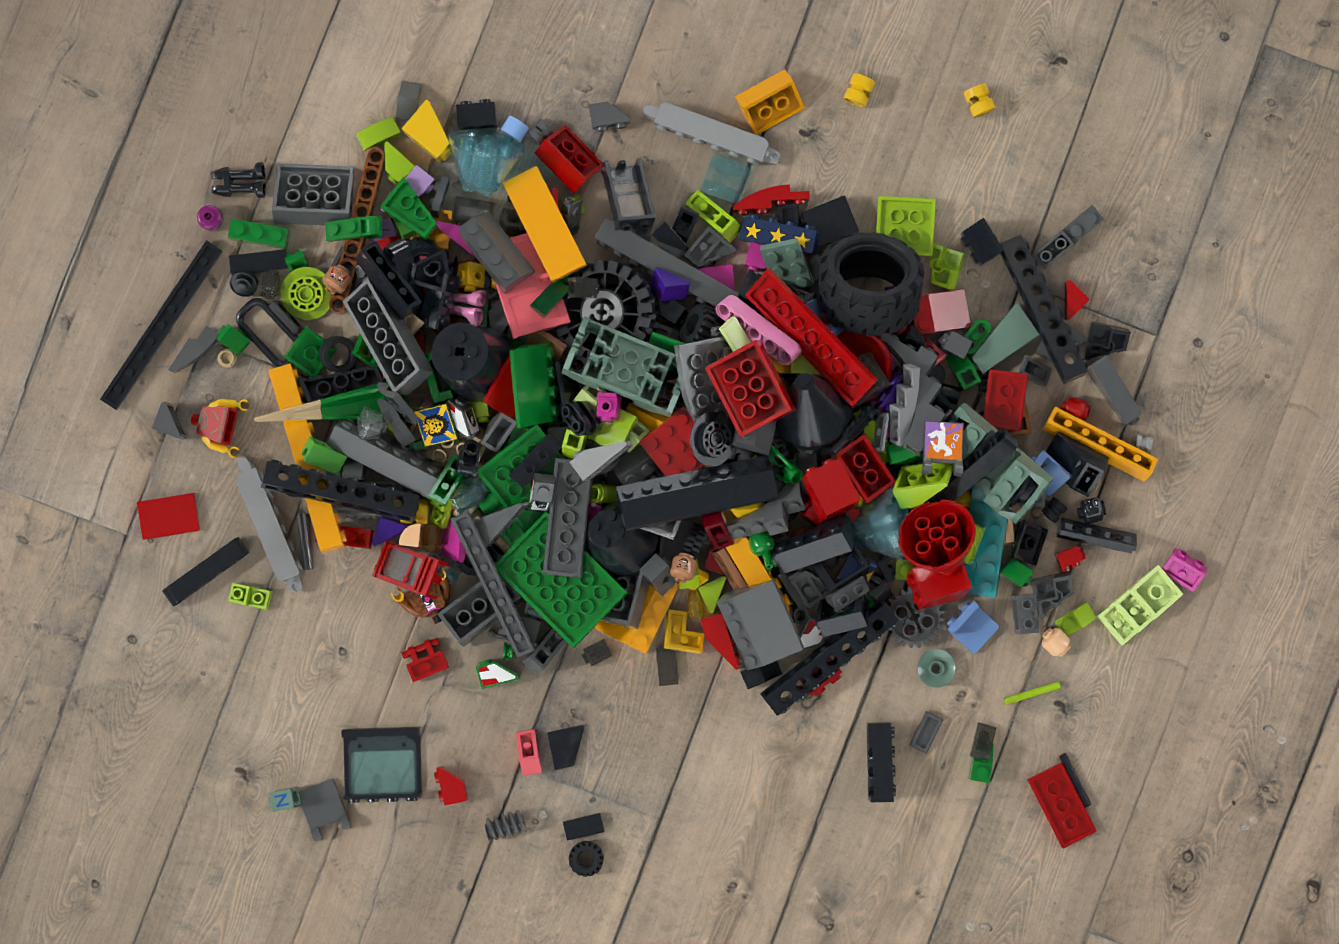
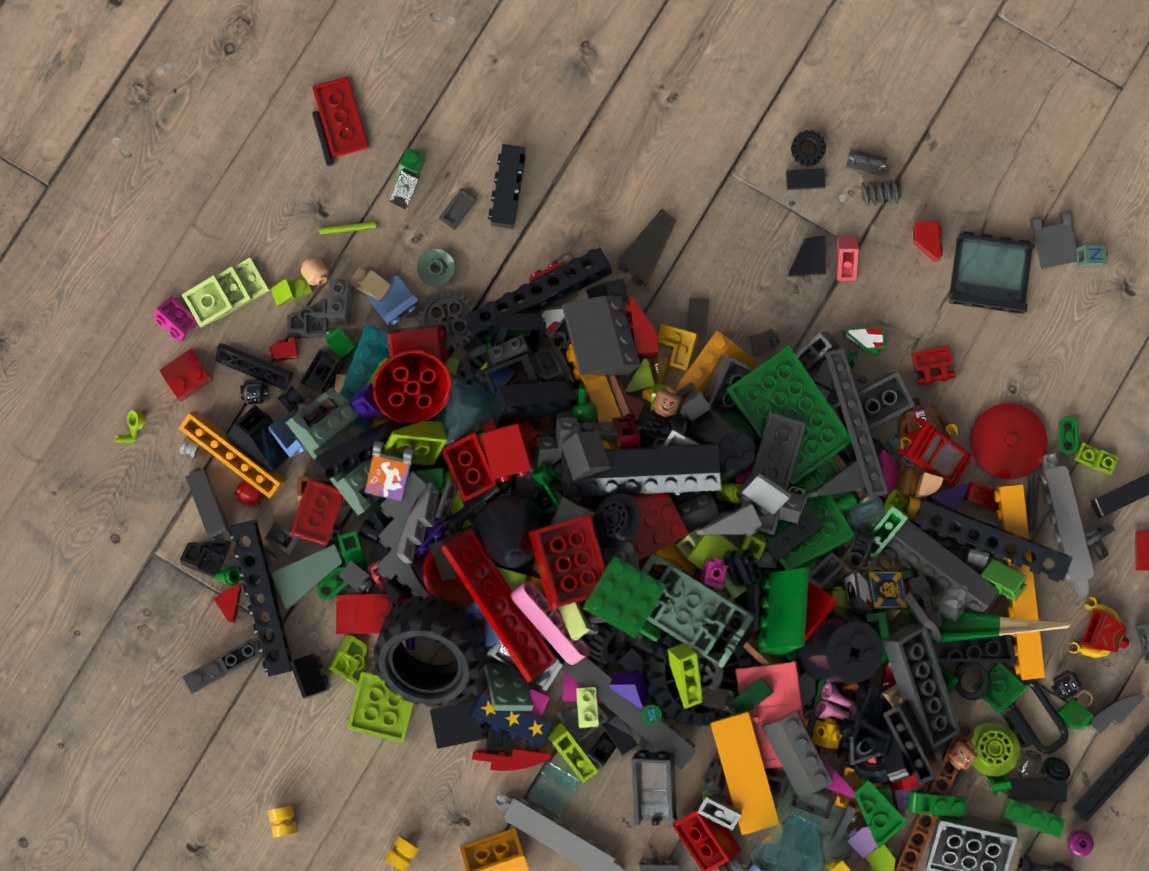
camera: 175 degrees left, 5 degrees down
(237, 516) = (1095, 537): none -> dark grey bracket
(245, 367) = (1066, 684): none -> black head
(278, 614) = (1070, 436): none -> green plate
(338, 597) = (1008, 441): none -> red dish
(525, 855) = (866, 162): none -> dark grey hinge
(564, 183) = (720, 812): none -> slope
(573, 493) = (763, 494): none -> slope
(617, 305) = (686, 674): none -> lime slope
(643, 263) = (651, 714): none -> tile
(691, 362) = (625, 597): none -> green plate
(707, 259) = (587, 707): none -> yellowish green bracket
(730, 723) = (646, 250): none -> clear smoke slope
(754, 498) = (585, 454): none -> dark grey slope
(981, 514) = (365, 403): none -> dark purple slope
(998, 639) = (370, 284): none -> tan slope
(1079, 323) = (228, 576): none -> green cone
(1163, 515) = (185, 375): none -> red slope
(1202, 460) = (135, 421): none -> lime plate

